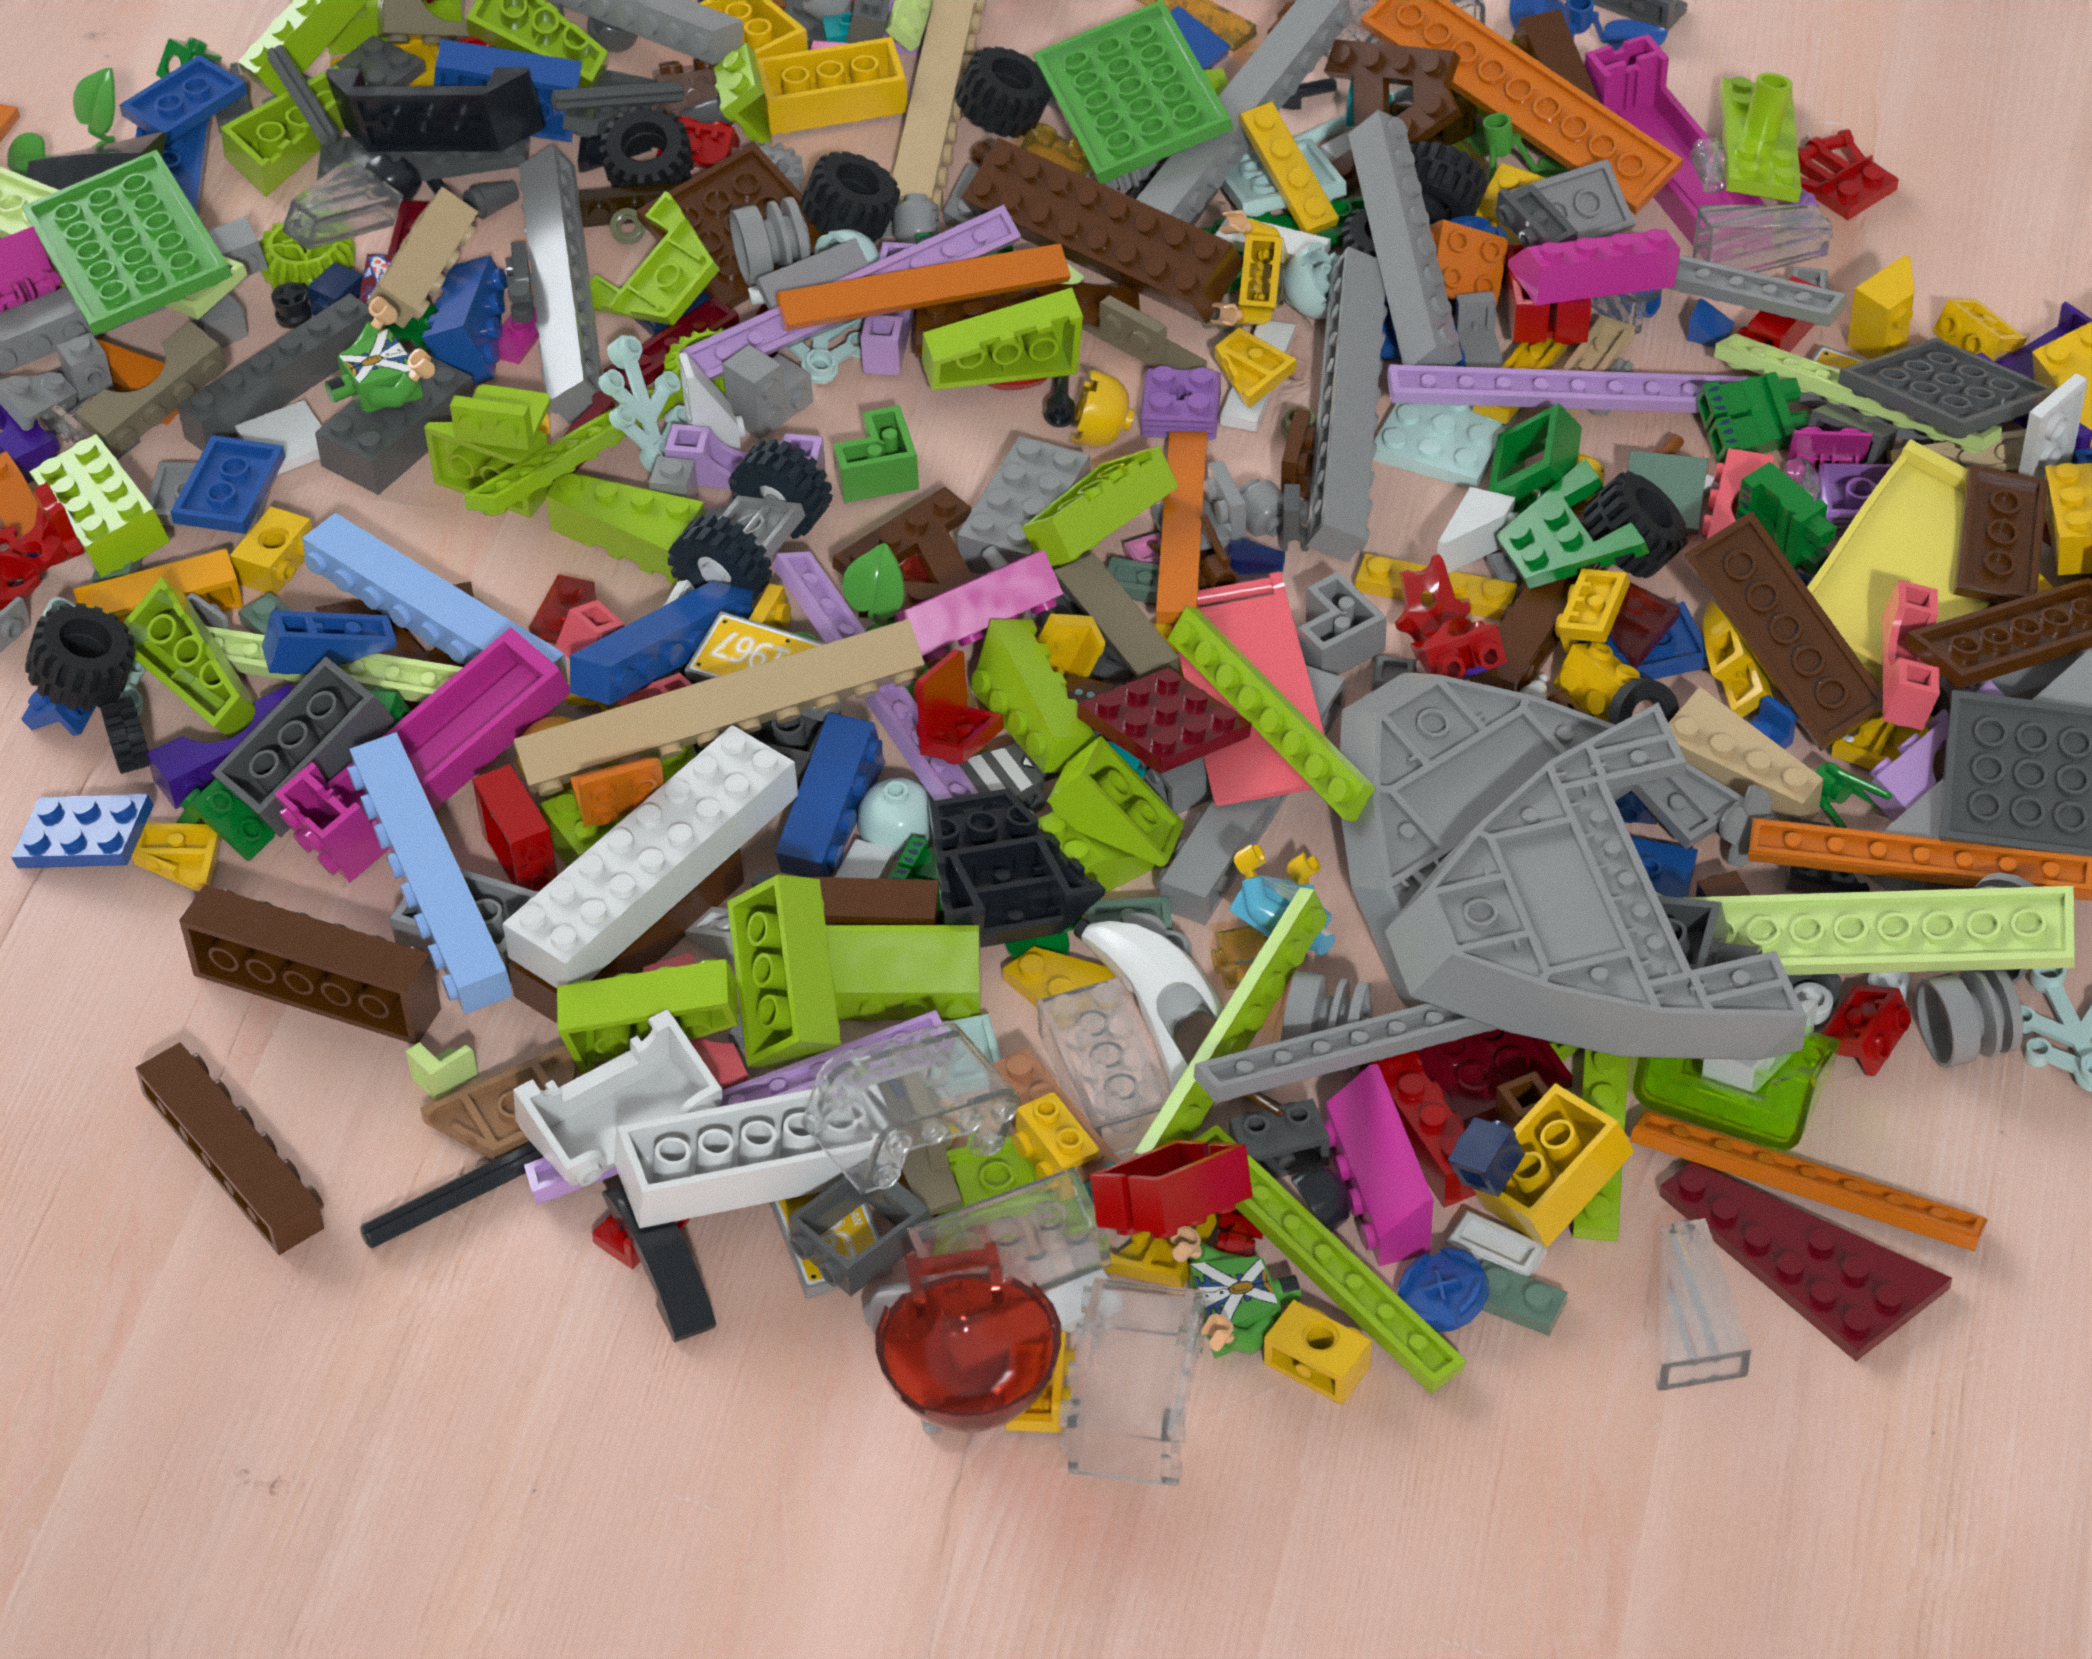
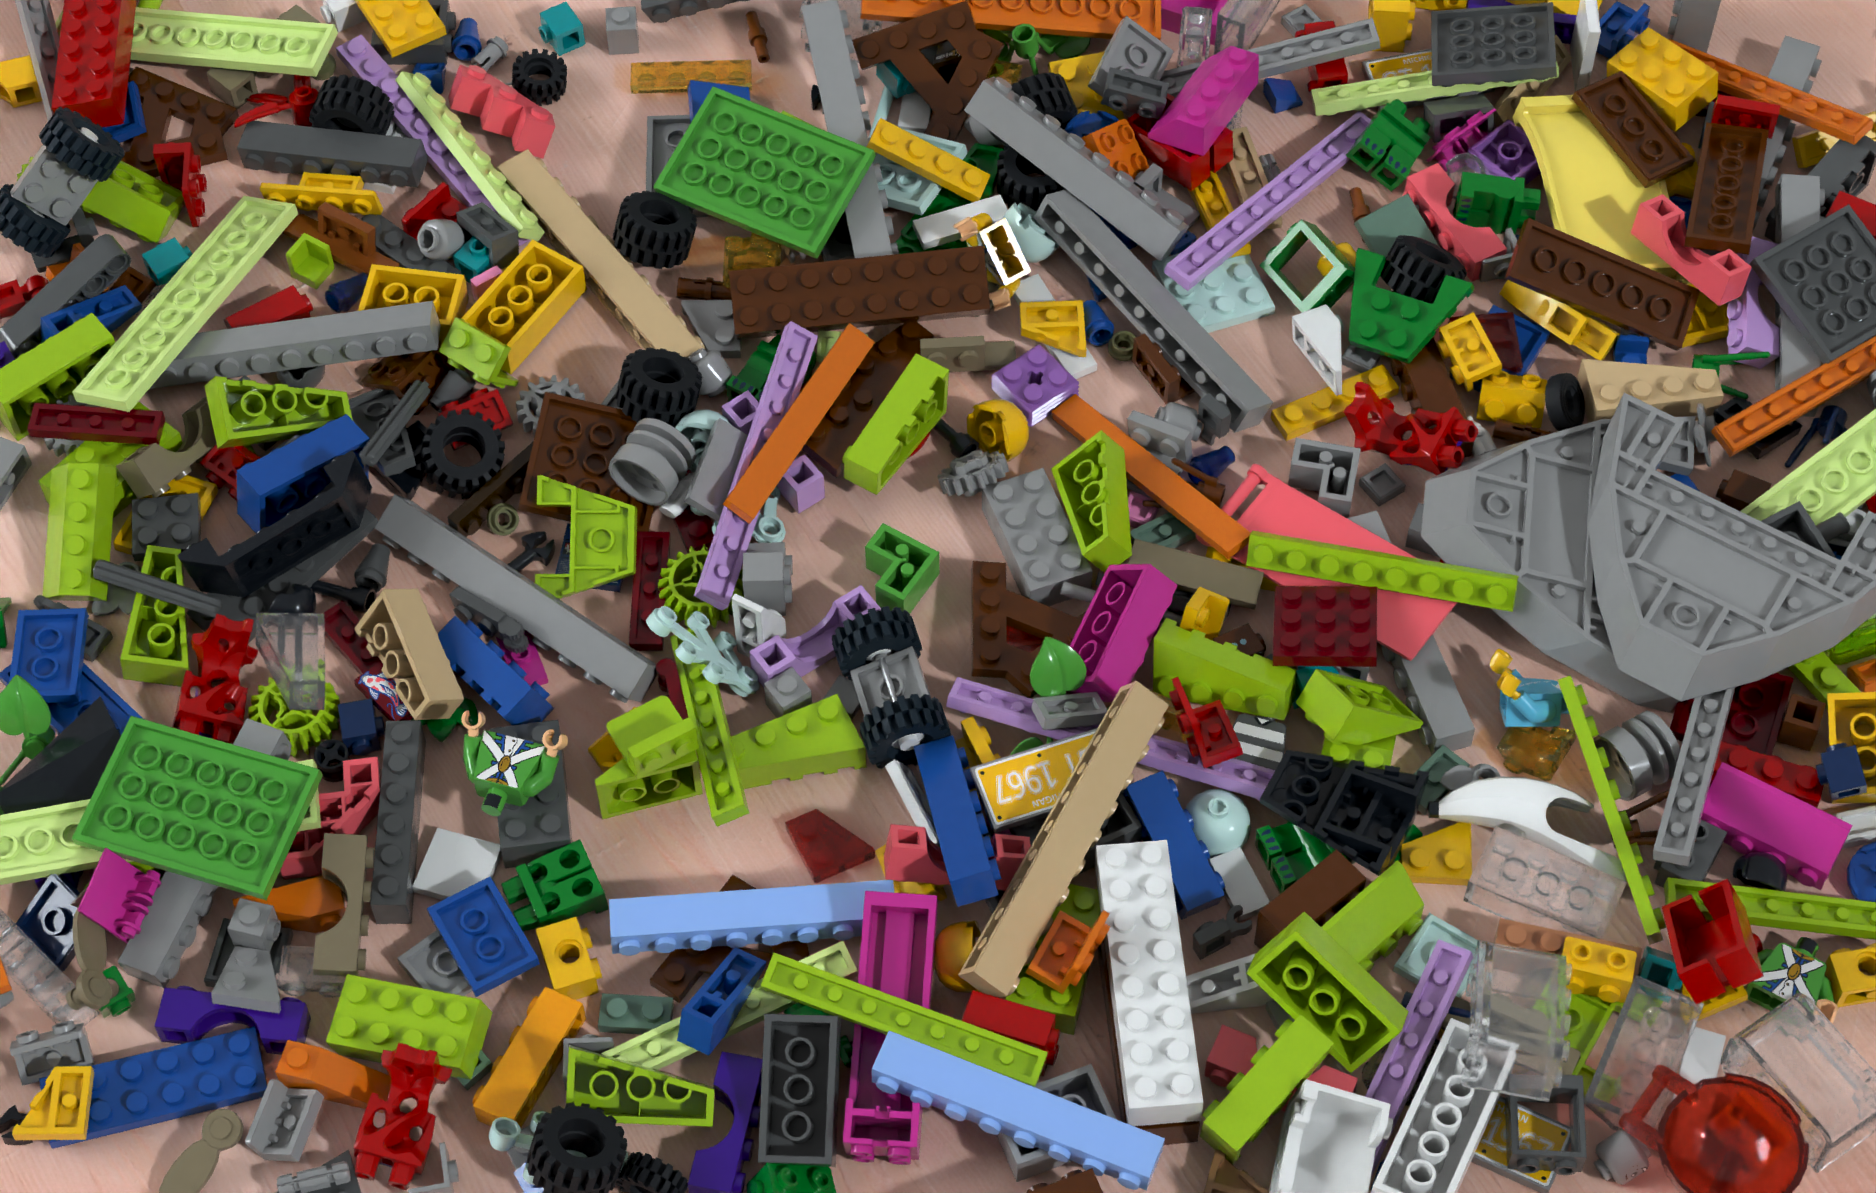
camera: 45 degrees left, 10 degrees up
(236, 329) = (340, 814): none -> coral brick
(271, 197) = (216, 662): none -> red hips
(331, 488) = (557, 888): none -> green hips
(427, 745) = (889, 1013): none -> lime plate
(624, 266) = (532, 553): none -> black bar
(844, 620) = (1069, 710): none -> light grey plate
(1032, 423) = (973, 473): none -> light grey gear
(1295, 390) = (1097, 325): none -> blue cone
(1673, 211) = (1194, 35): none -> clear brick

